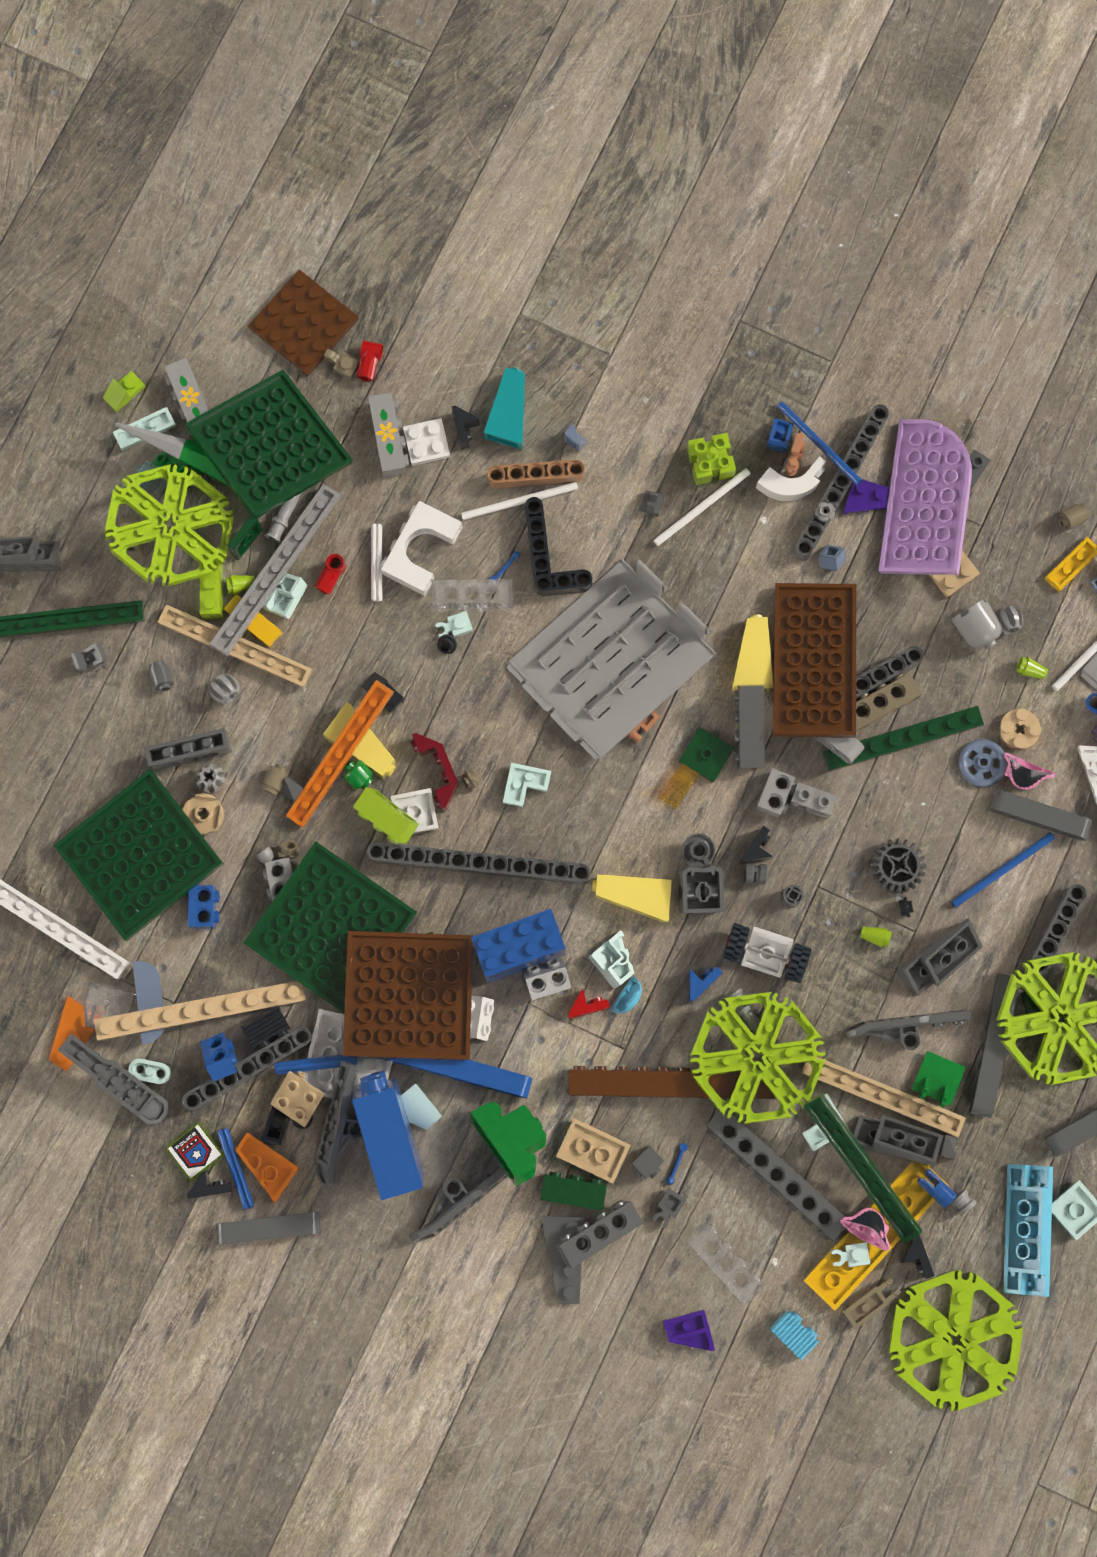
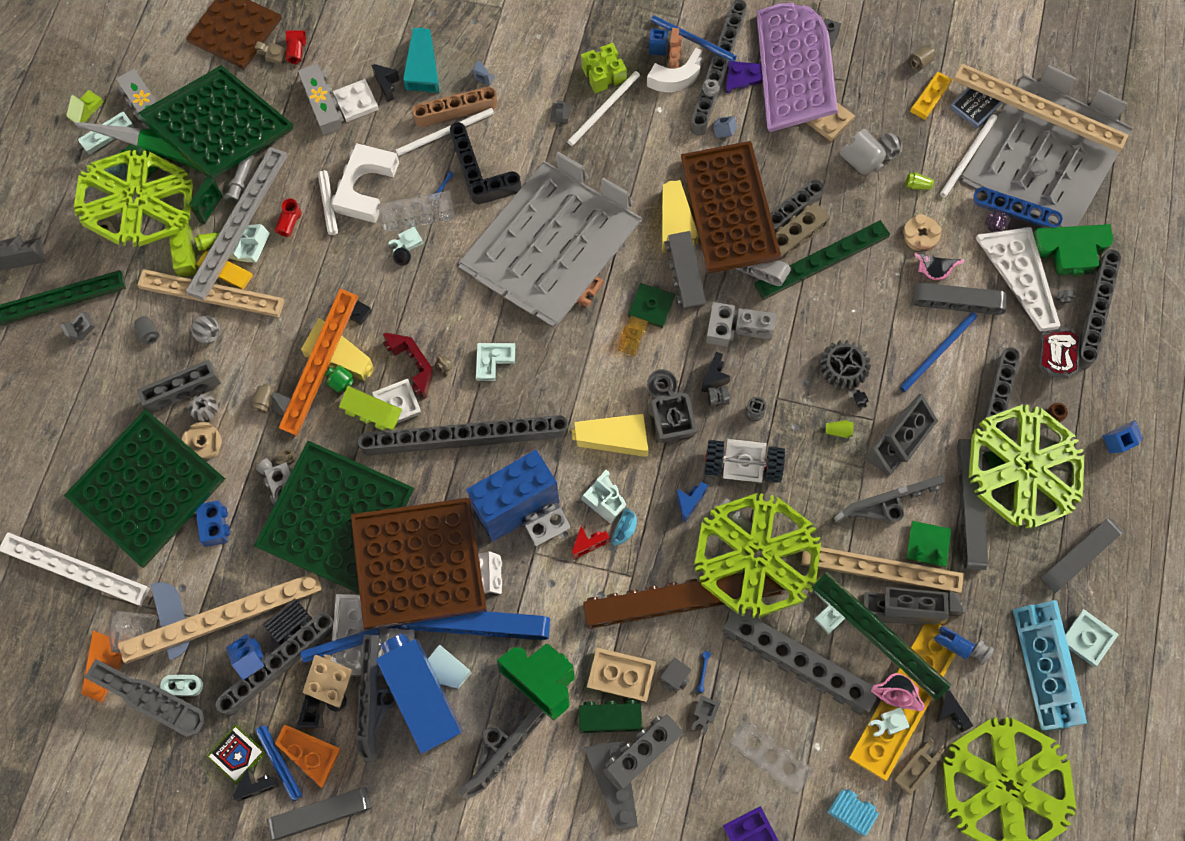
camera: 10 degrees left, 10 degrees down
(996, 753) = (896, 280): sand blue plate -> none

